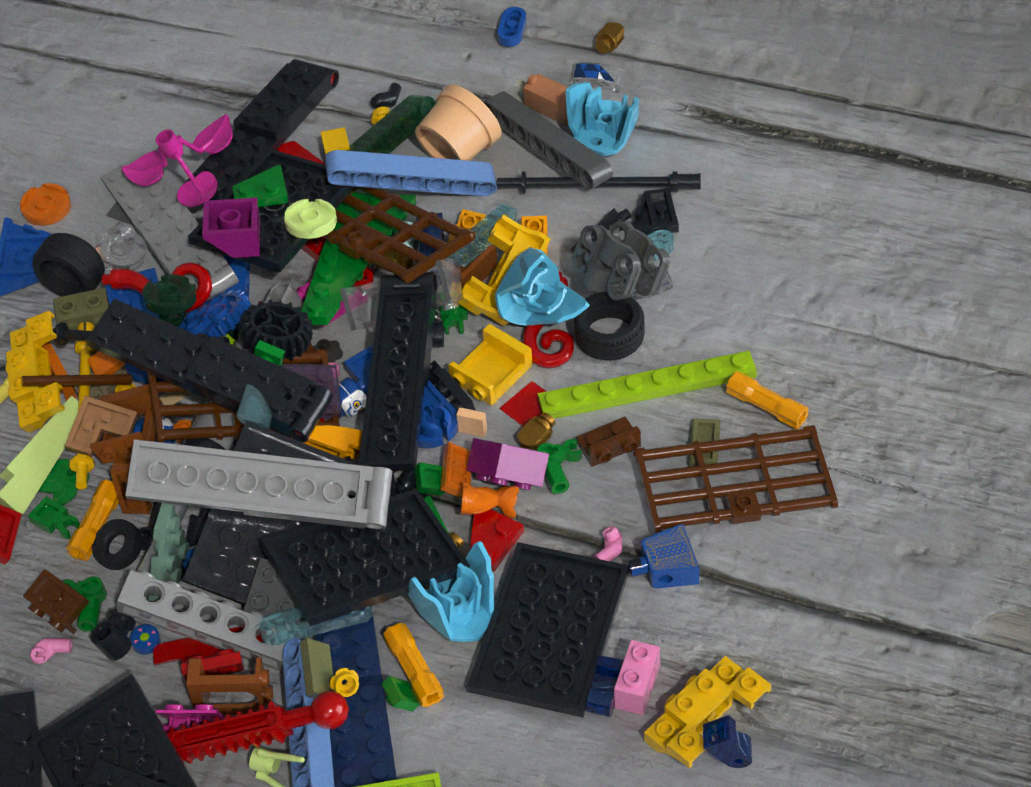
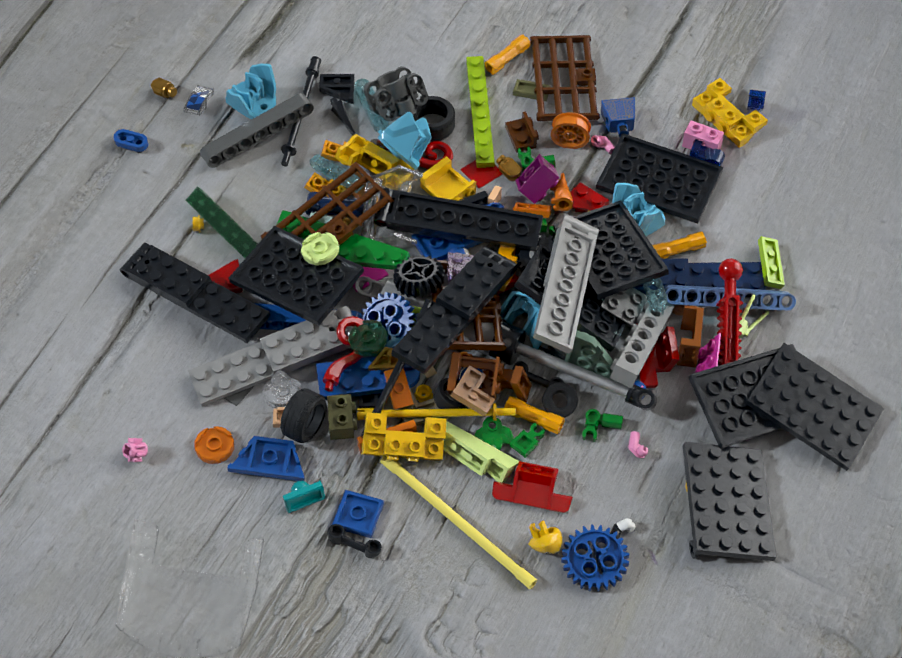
camera: 85 degrees left, 5 degrees up
(28, 130) = (135, 449): none -> bright pink gear
(56, 600) = (605, 433): reddish brown bracket -> none
(77, 380) = (420, 411): reddish brown bar -> none
(149, 167) = (206, 311): dark pink plant -> none
(233, 226) = (330, 282): magenta slope -> none
(254, 408) = (506, 276): clear light blue brick -> none
(266, 187) = (280, 277): green wing -> none
(269, 352) = (444, 278): green plate -> none
(316, 666) = (690, 283): olive tile -> none
(334, 140) = (221, 251): yellow panel -> none
(351, 685) = (700, 270): yellow plate -> none
(386, 99) = (176, 218): black arm -> none
(400, 694) = (700, 254): green plate -> none
(410, 173) = (277, 200): medium blue beam -> none
(458, 126) = (238, 171): light nougat piece -> none
(546, 97) = (216, 123): nougat brick -> none
(608, 490) = (570, 130): none -> orange wheel

